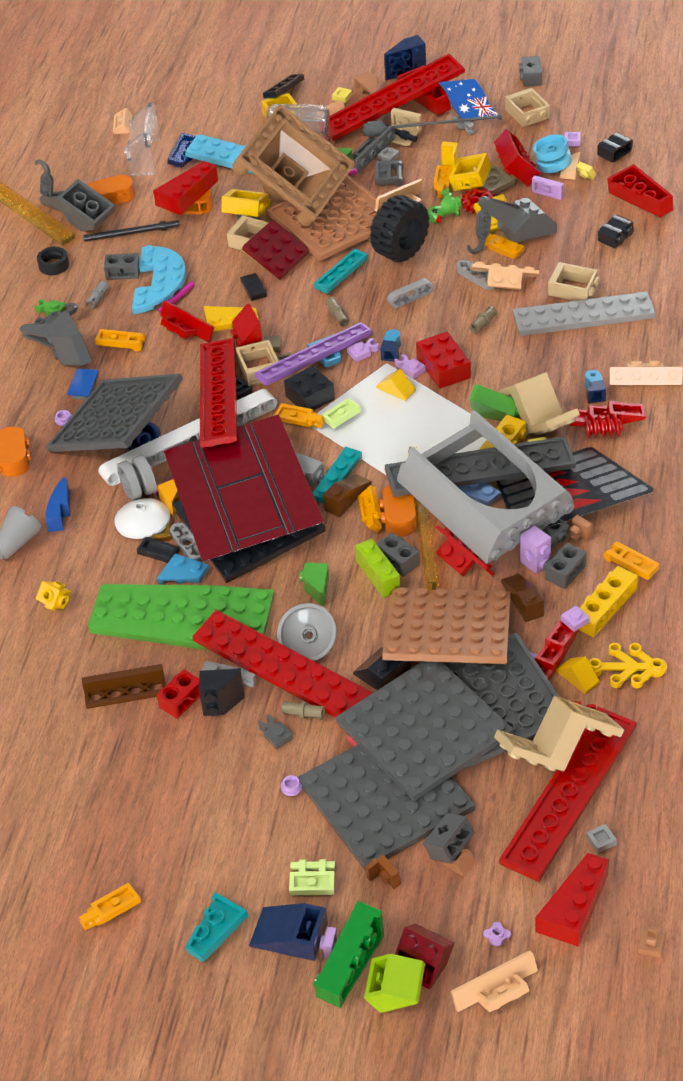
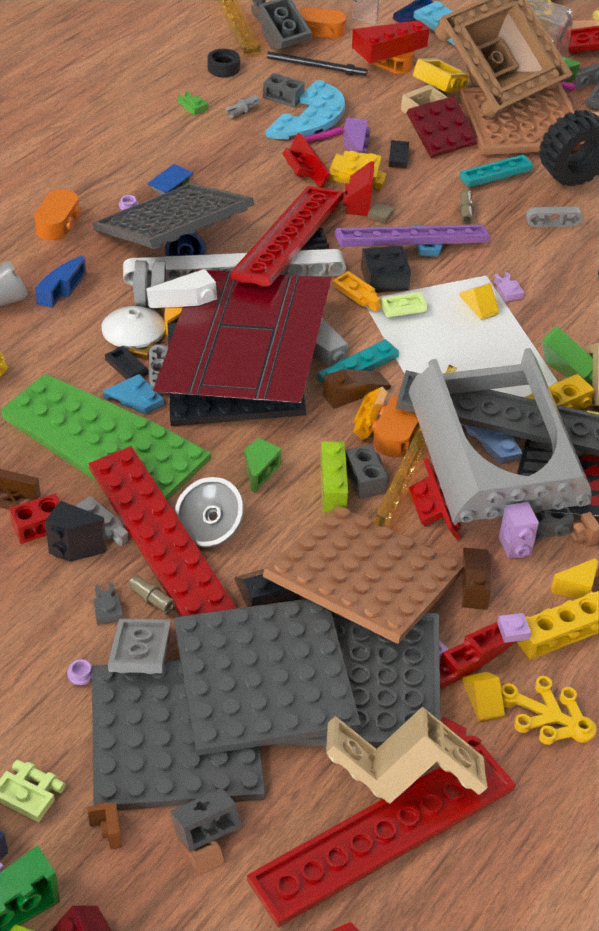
camera: 20 degrees right, 0 degrees up
(60, 334) = (178, 129): dark grey slope -> none
(120, 339) = (235, 153): light orange plate -> none
(173, 471) = (183, 291): none -> white slope
(210, 287) = (356, 135): none -> medium lavender slope
(228, 309) = (354, 161): none -> yellow plate
(260, 350) = (346, 211): tan window -> none
(324, 747) = (140, 646): none -> light grey plate
(361, 351) = (467, 253): lavender plate -> none
(390, 345) = (499, 258): dark blue leg -> none
(443, 359) = (546, 293): red brick -> none
(565, 565) = (540, 563): dark grey brick -> none
(595, 568) = (575, 581): none -> yellow slope
(601, 838) = (385, 910): light grey plate -> none

